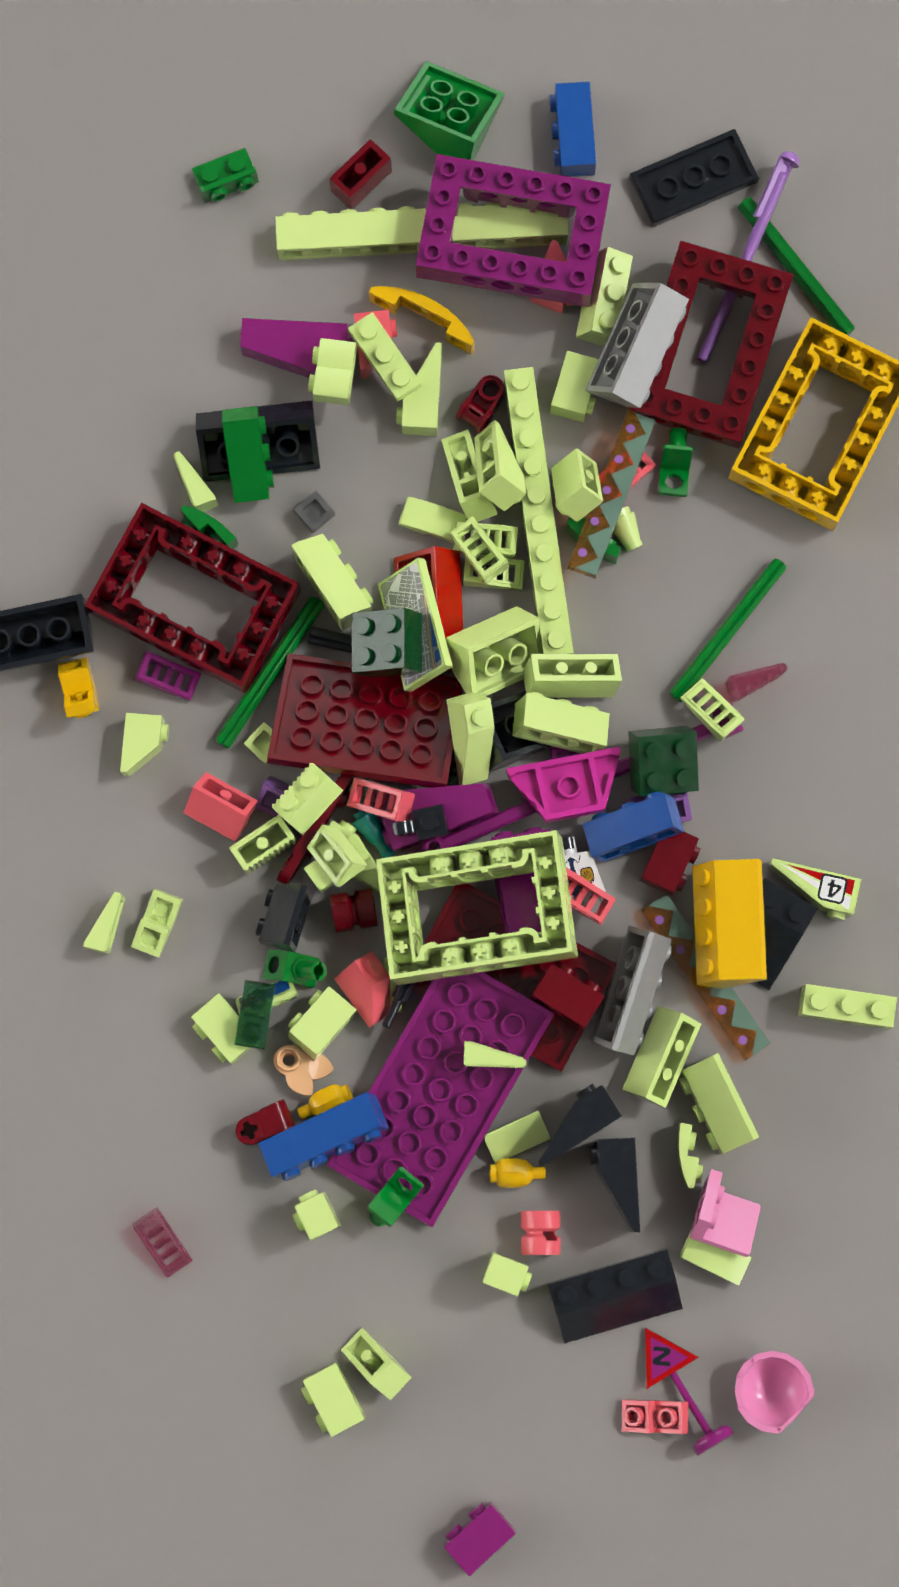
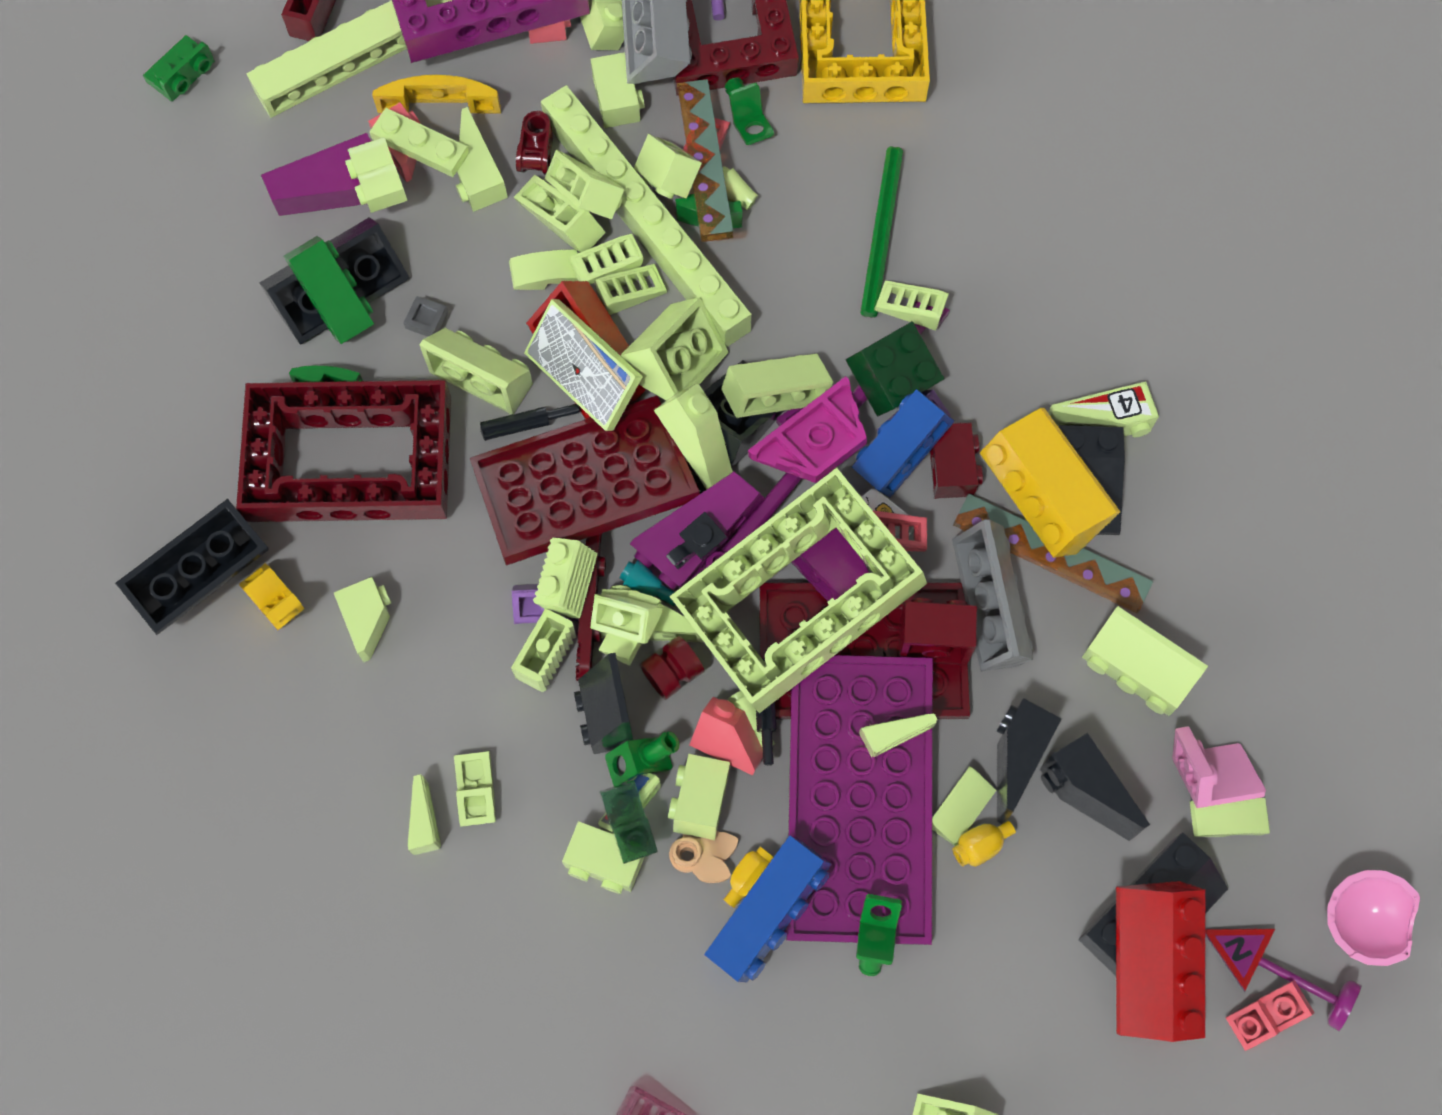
camera: 30 degrees left, 10 degrees down
(163, 686) = (357, 530): magenta slope -> none
(197, 490) = (290, 348): yellowish green slope -> none
(220, 806) = (479, 636): coral brick -> none
(259, 742) = (489, 556): yellowish green plate -> none
(269, 672) = (460, 487): green axle -> none
(269, 1120) = (699, 928): dark red piece -> none
(315, 1214) = (805, 996): yellowish green brick -> none
(387, 642) = (564, 390): brick -> none
(398, 805) = (660, 536): coral slope -> none
(493, 571) = (613, 283): yellowish green slope -> none
(507, 1274) = (1037, 948): yellowish green brick -> none
(540, 1233) = (1044, 888): coral wheel -> none
(573, 675) = (762, 334): yellowish green brick -> none
(590, 1333) = (1160, 961): none -> red slope
(661, 1056) = (1059, 647): yellowish green brick -> none
(688, 1165) = (1147, 741): yellowish green slope -> none
(746, 683) = (927, 266): clear pink slope -> none
(847, 1006) = (1204, 507): yellowish green brick -> none

